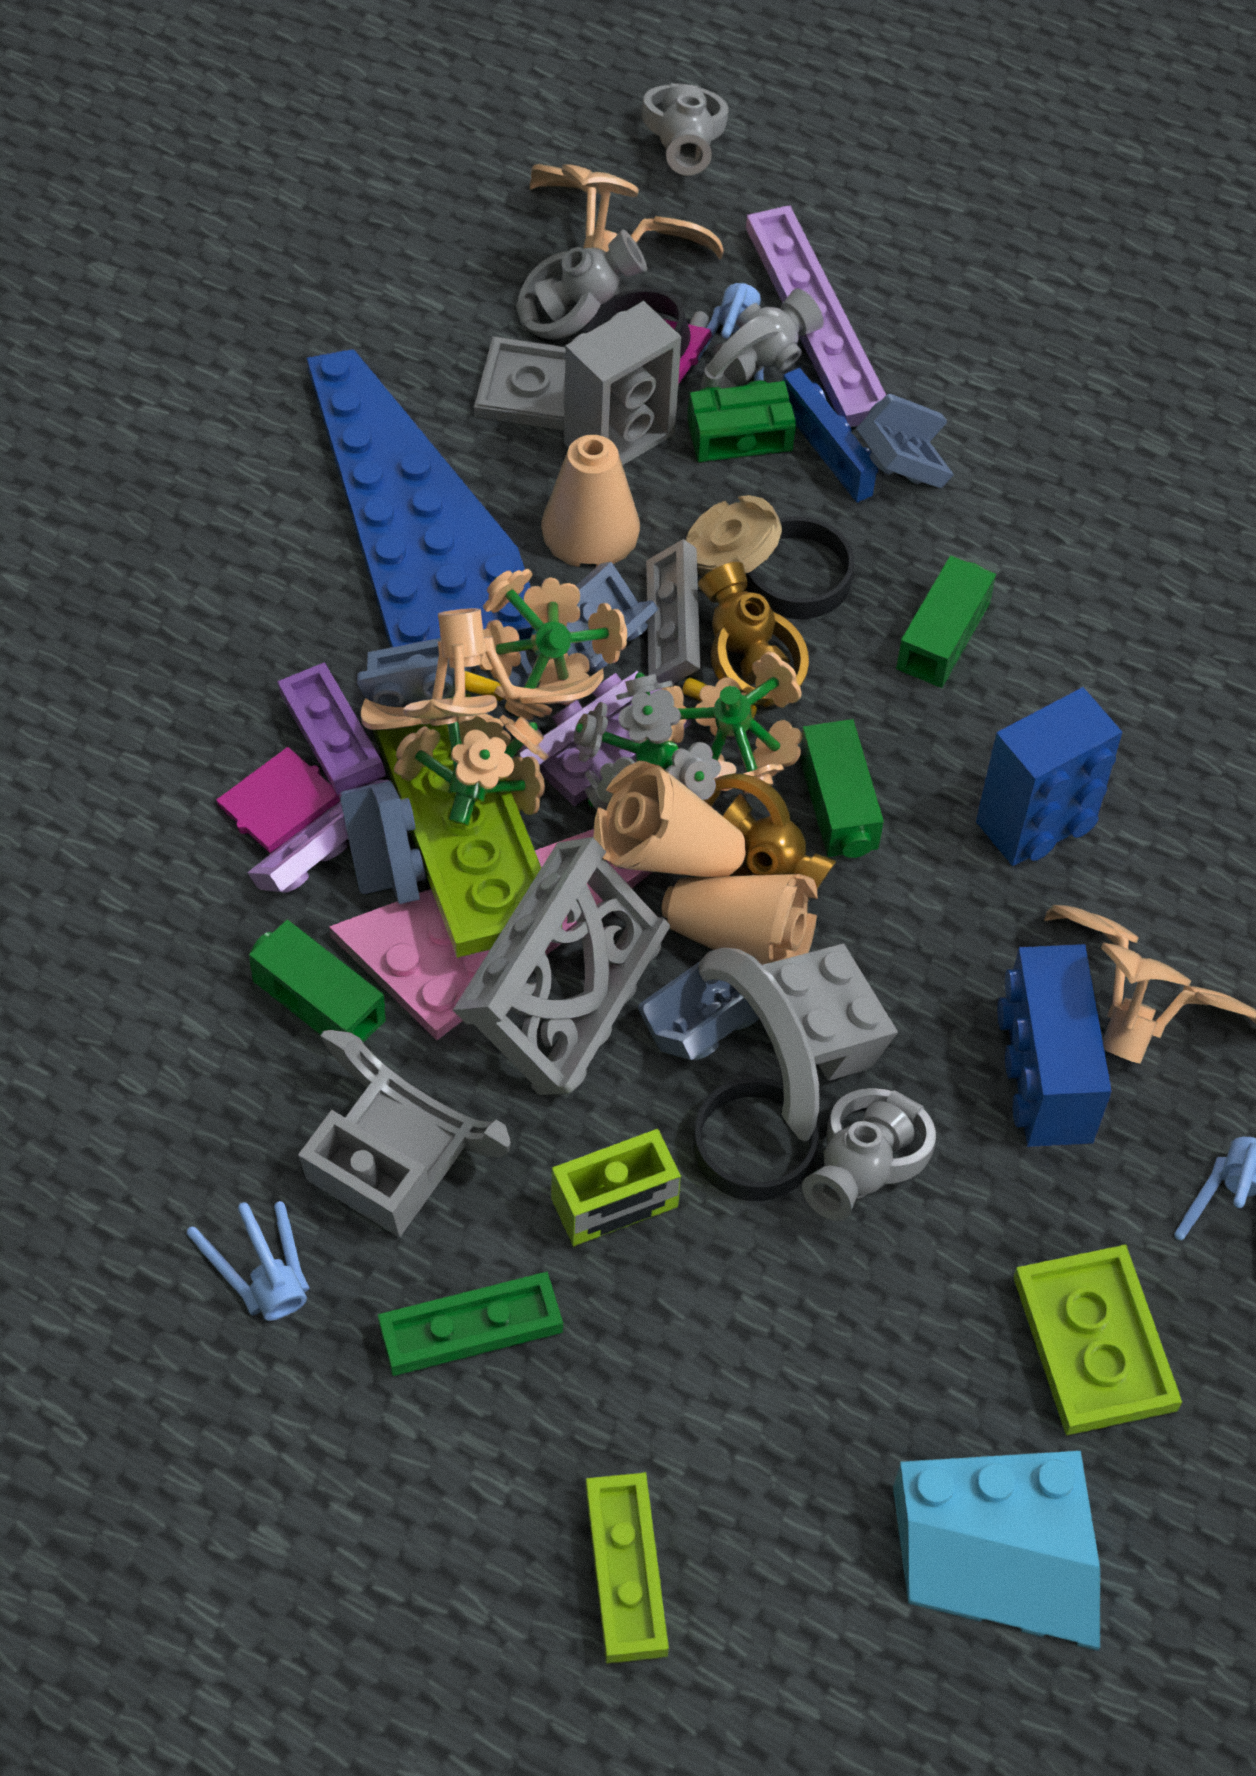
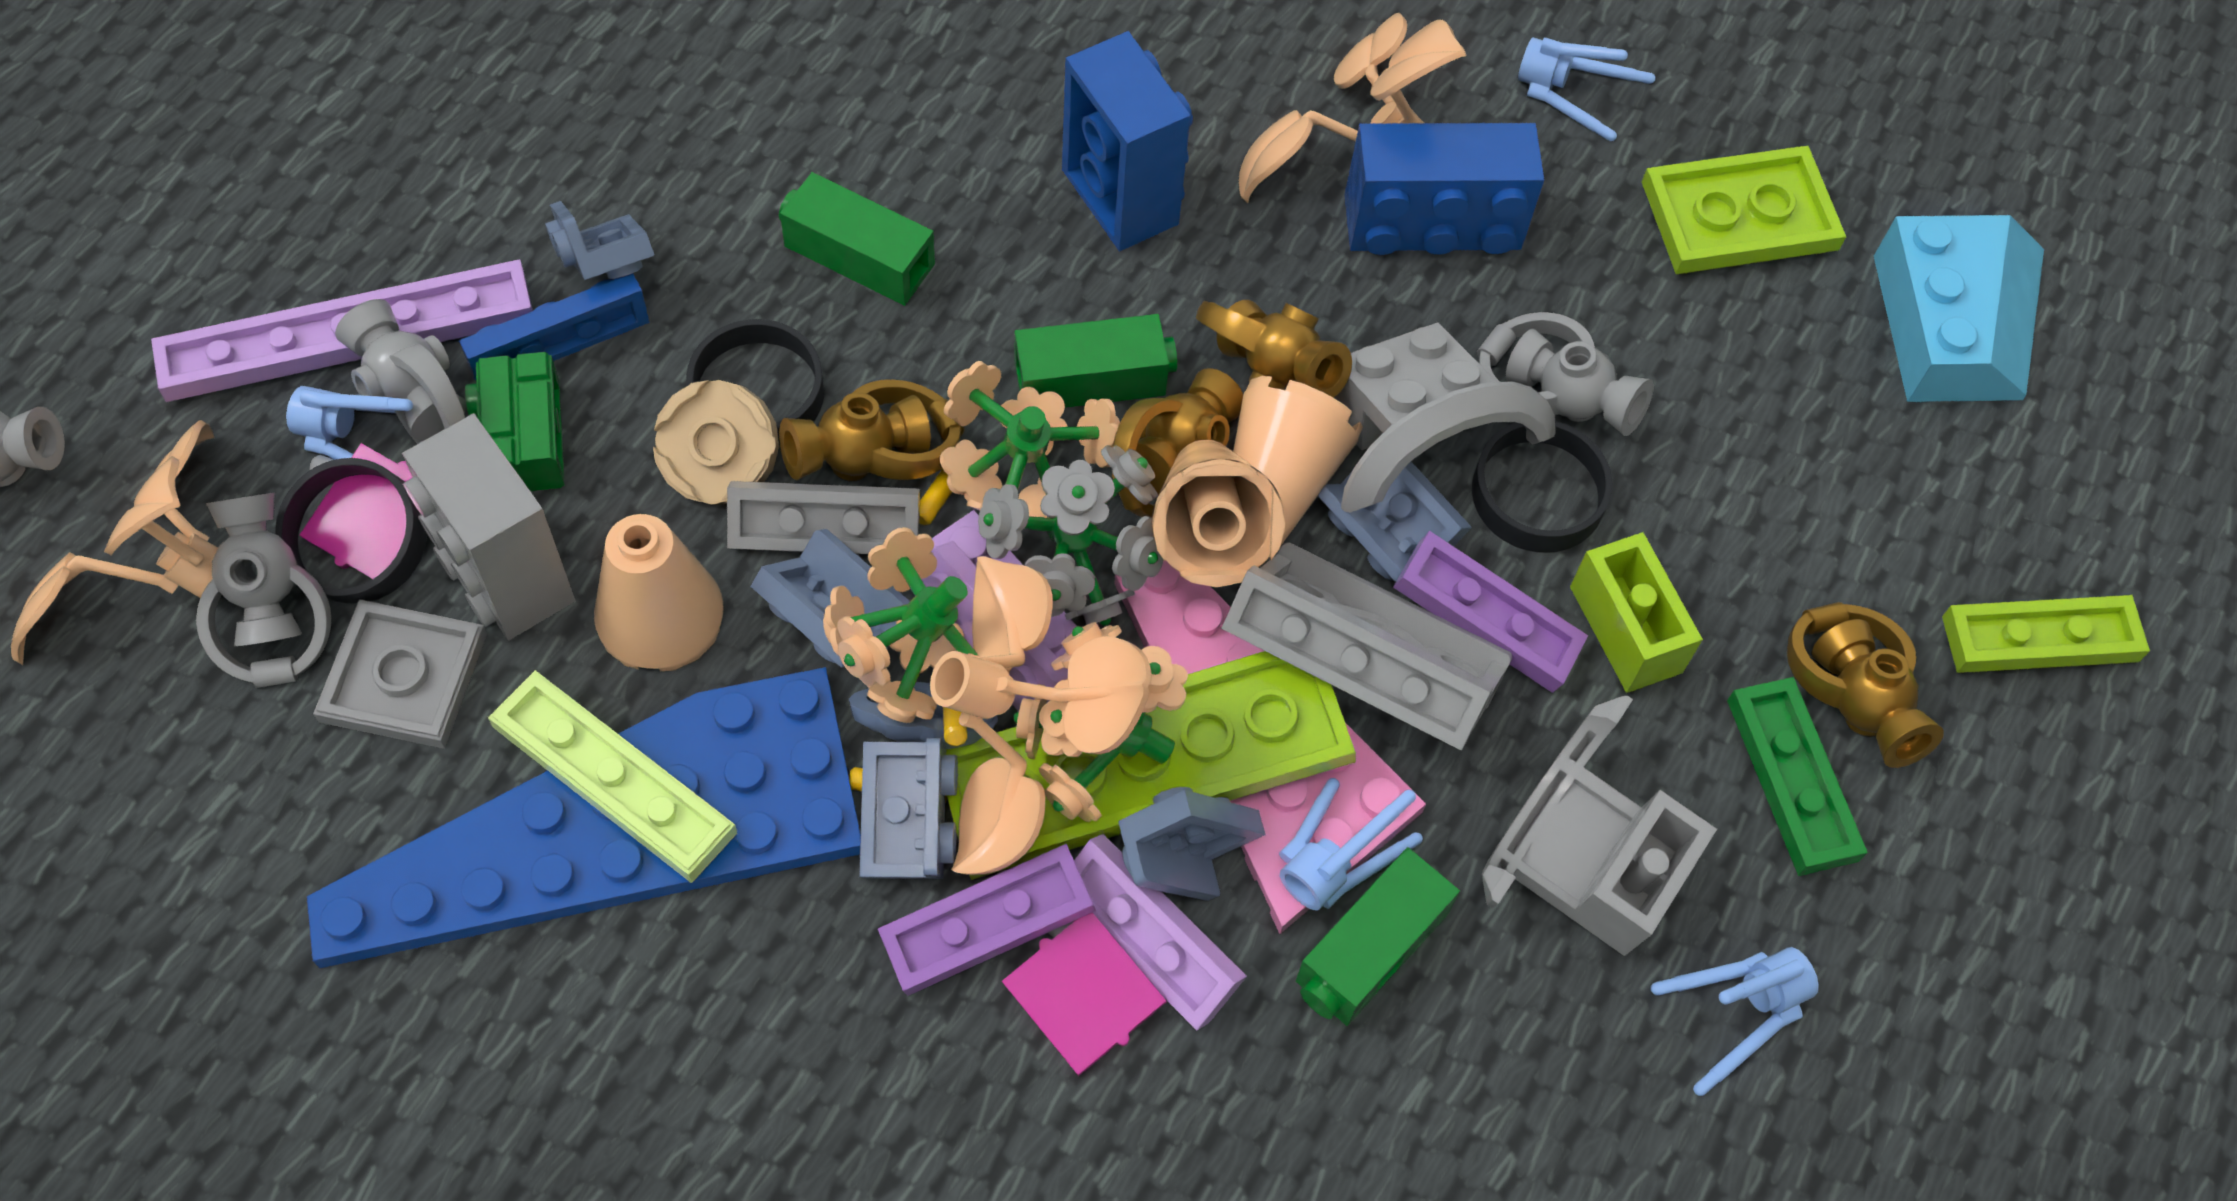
camera: 90 degrees left, 5 degrees up
(368, 938) = (1318, 870): none -> light blue plant
(439, 495) = (613, 776): none -> yellowish green tile
(549, 1384) = (1873, 687): none -> pearl gold piece
(612, 1076) = (1491, 608): none -> medium lavender plate
(857, 901) = (1279, 345): none -> pearl gold piece

